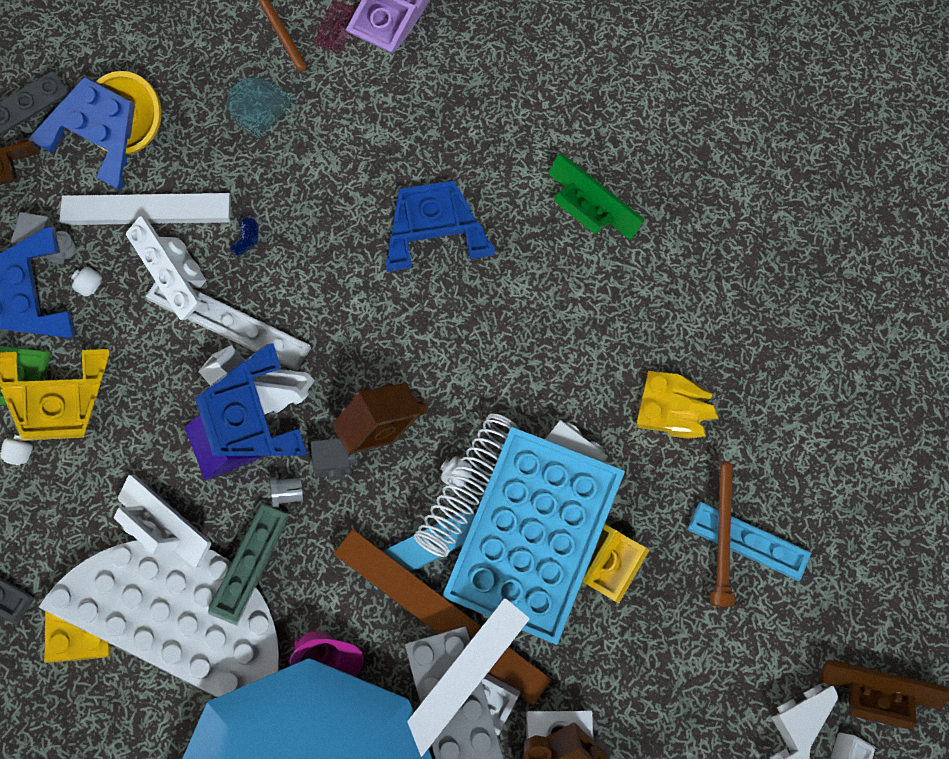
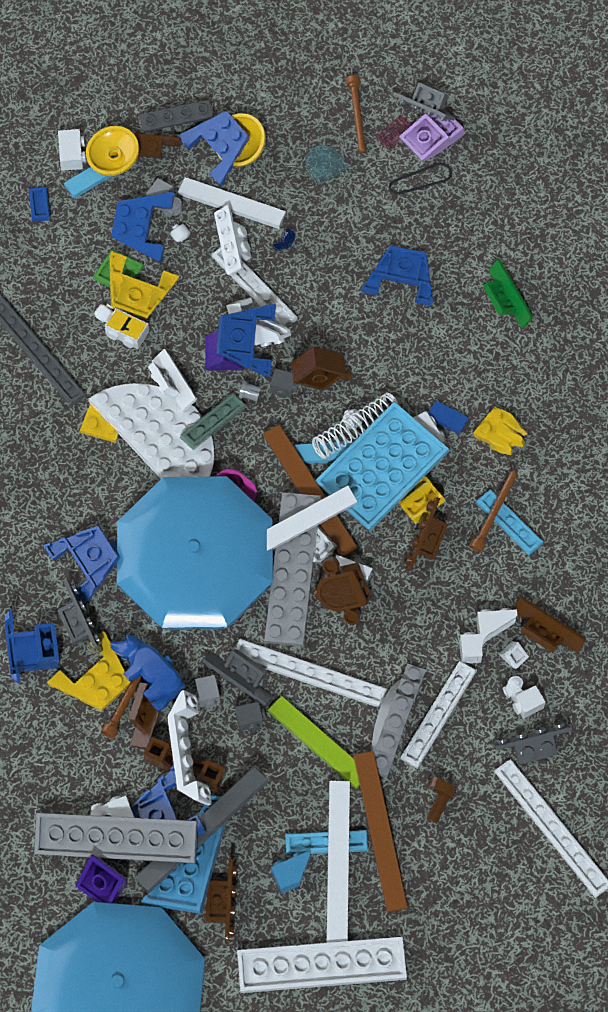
camera: 25 degrees right, 5 degrees down
(58, 465) = (126, 329): none -> brick
(406, 88) = (420, 187): none -> black piece
(590, 413) = (448, 417): none -> blue tile
(650, 620) = (429, 537): none -> reddish brown bracket

